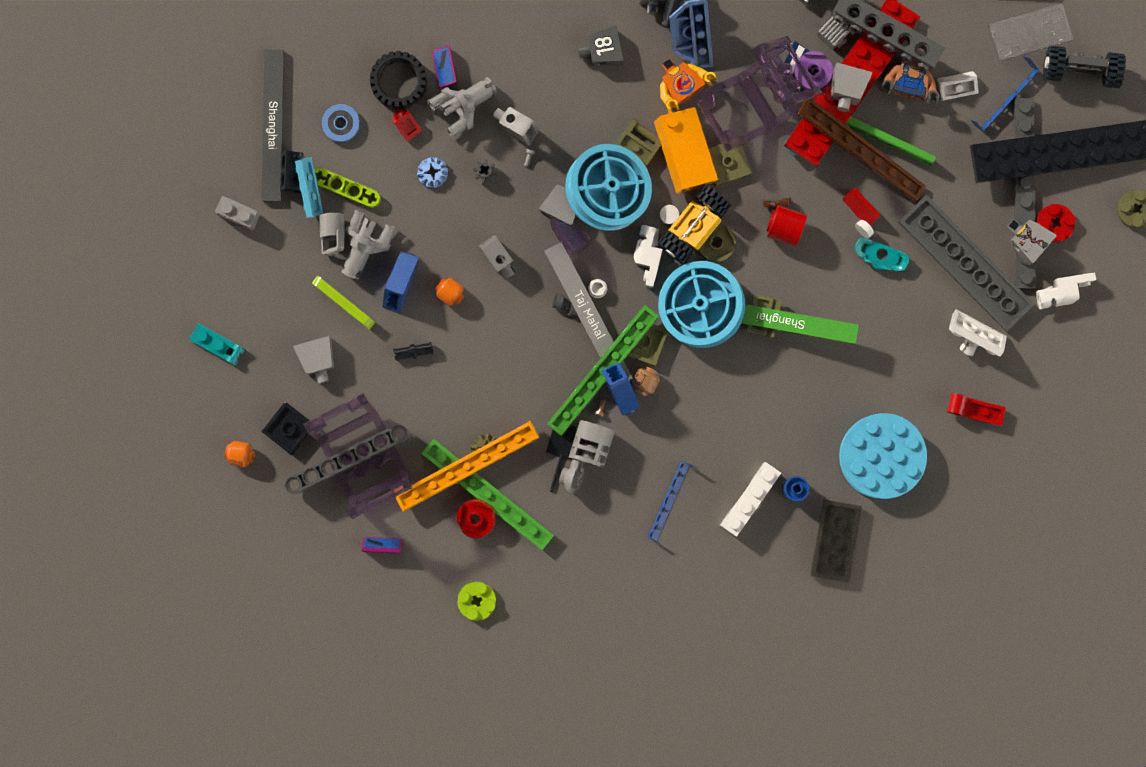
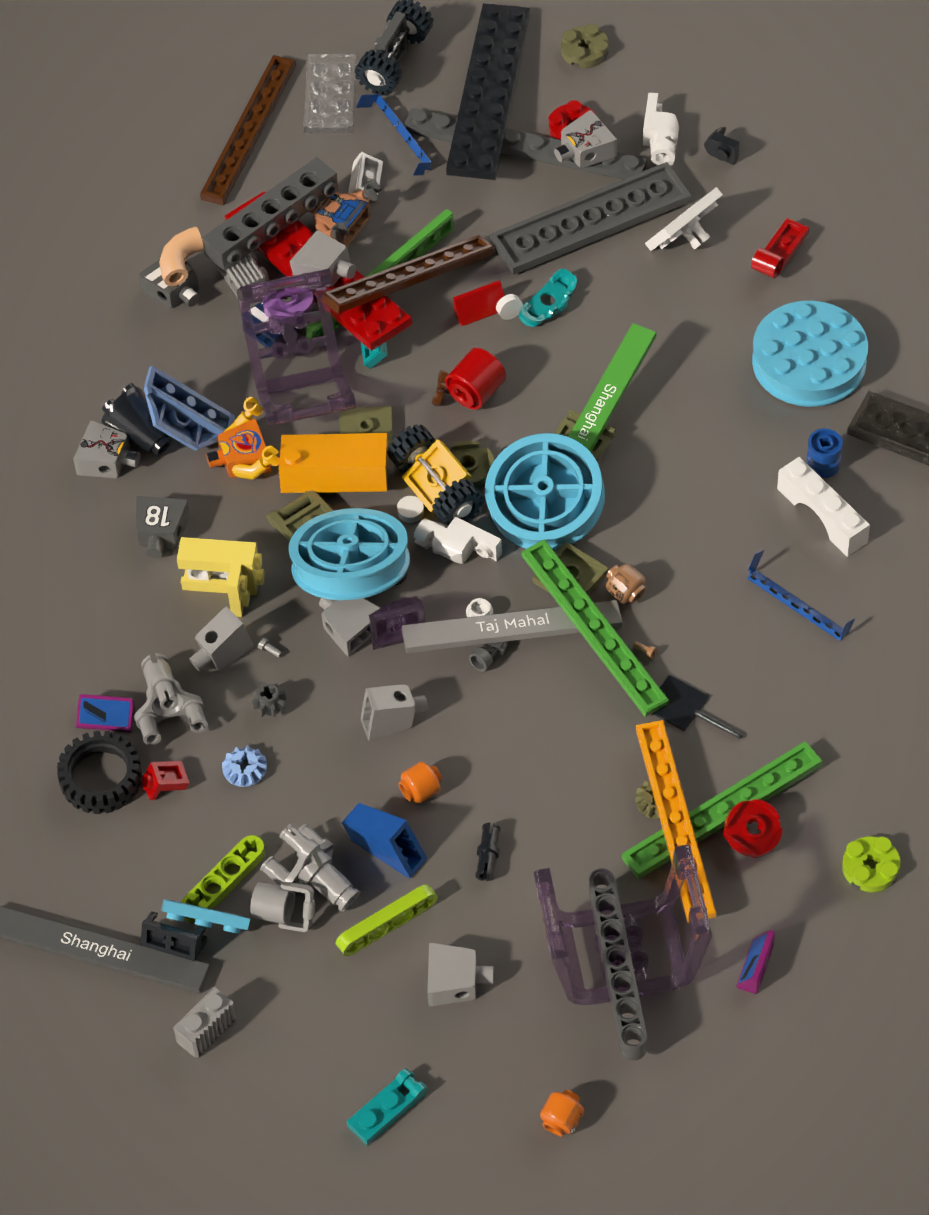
camera: 70 degrees left, 30 degrees down
(287, 428) = (545, 1040): black plate -> none
(337, 112) = (127, 847): medium blue tile -> none
(576, 111) = (221, 568): none -> light yellow brick
(584, 453) = (699, 667): light grey cylinder -> none
(620, 389) = (627, 603): blue slope -> none
(1061, 341) = (722, 146): none -> black plate

